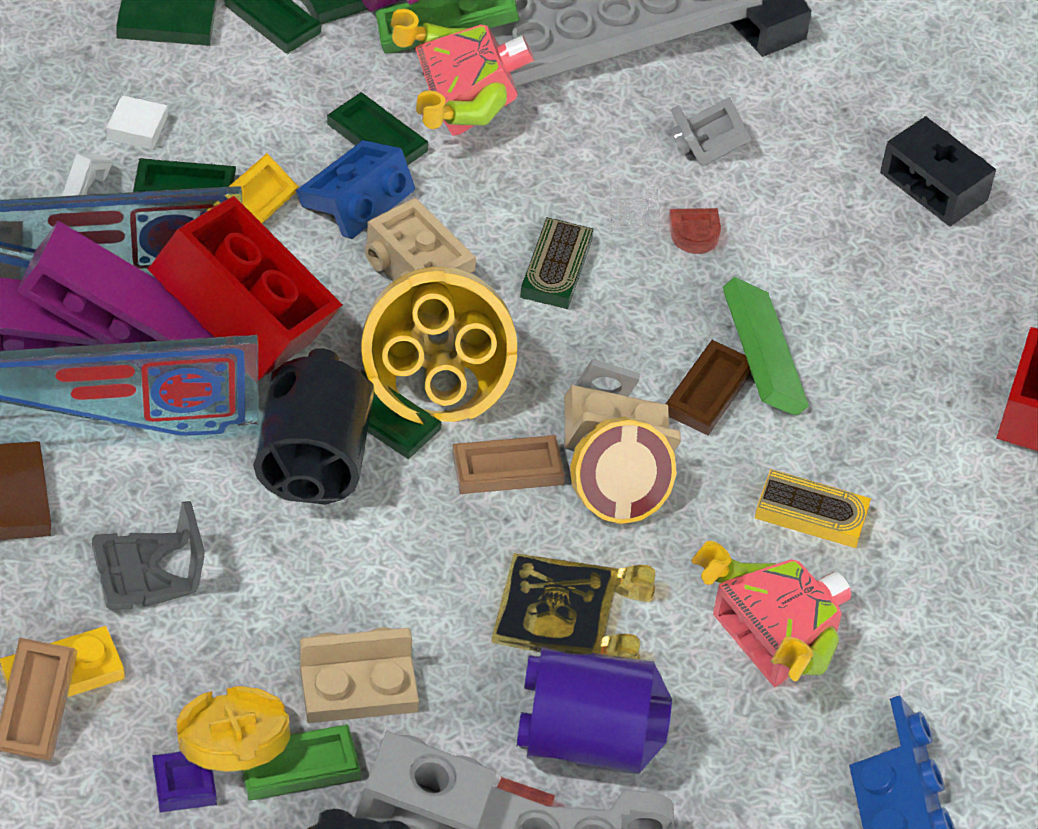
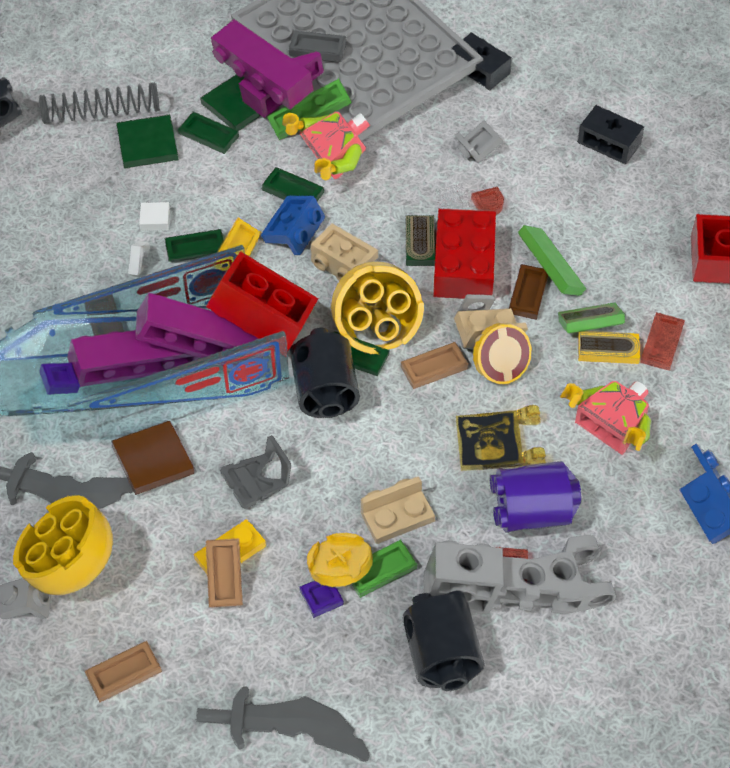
camera: 10 degrees left, 5 degrees up
(620, 297) = (464, 253): none -> red brick
(799, 453) = (591, 317): none -> bright green tile
(909, 521) = (662, 341): none -> clear red tile

